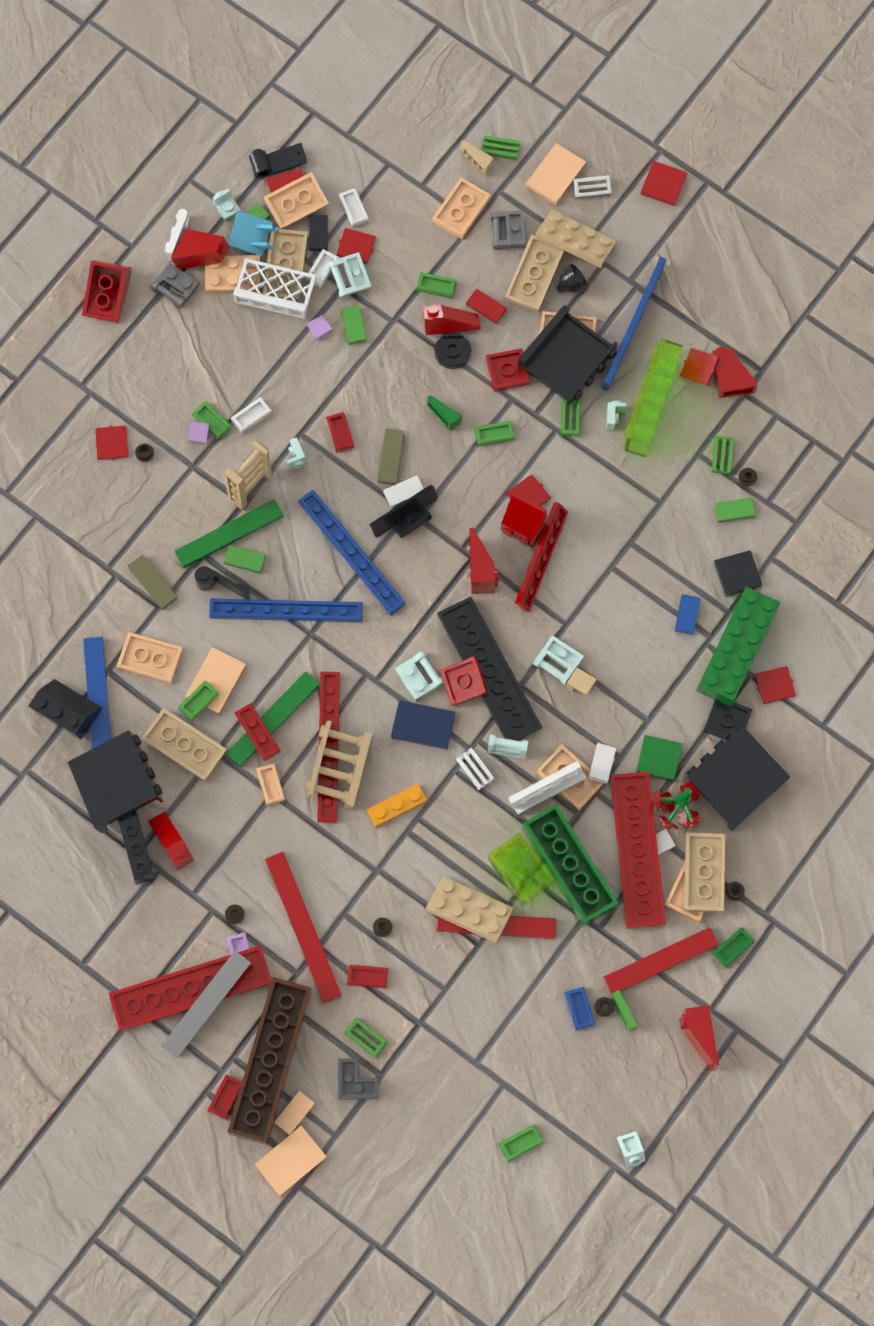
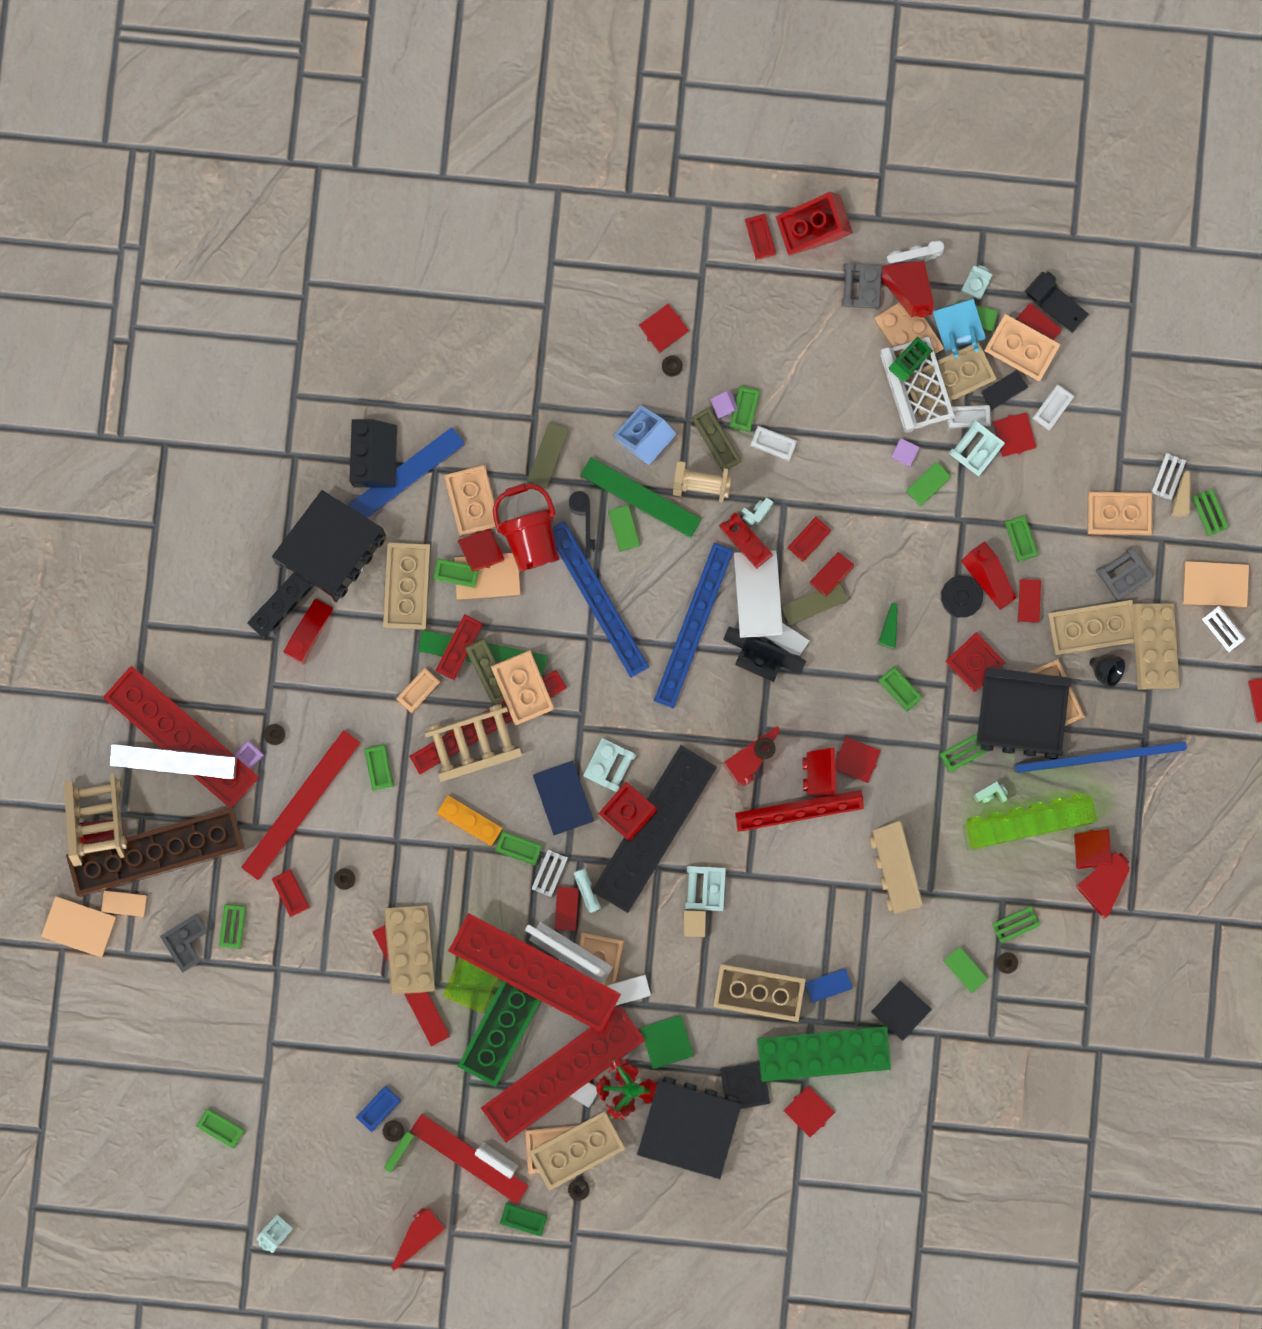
camera: 60 degrees right, 10 degrees up
(89, 334) = (760, 236): none -> red tile
(183, 501) = (645, 434): none -> light blue slope
(193, 672) = (481, 550): none -> red piece
(205, 625) = (529, 535): none -> red piece
(214, 1111) = (74, 813): none -> tan fence
(220, 454) = (716, 439): none -> olive tile
(254, 279) = (901, 368): none -> green slope
(289, 721) = (482, 660): none -> olive tile
(311, 850) = (378, 767): none -> bright green tile
(312, 475) = (746, 541): none -> red plate
(319, 702) = (522, 687): none -> light nougat tile
(358, 489) = (758, 597): none -> white slope
(377, 429) = (832, 574): none -> red tile
(441, 781) = (518, 848): none -> bright green tile
(453, 146) = (1174, 459): none -> white tile
(481, 540) = (764, 741): none -> dark brown plate
(510, 772) = (566, 908): none -> red tile
(547, 818) = (534, 972): none -> red plate
(630, 508) = (896, 868): none -> tan slope
(663, 665) = (759, 993): none -> tan brick
(674, 939) = (496, 1160): none -> white tile

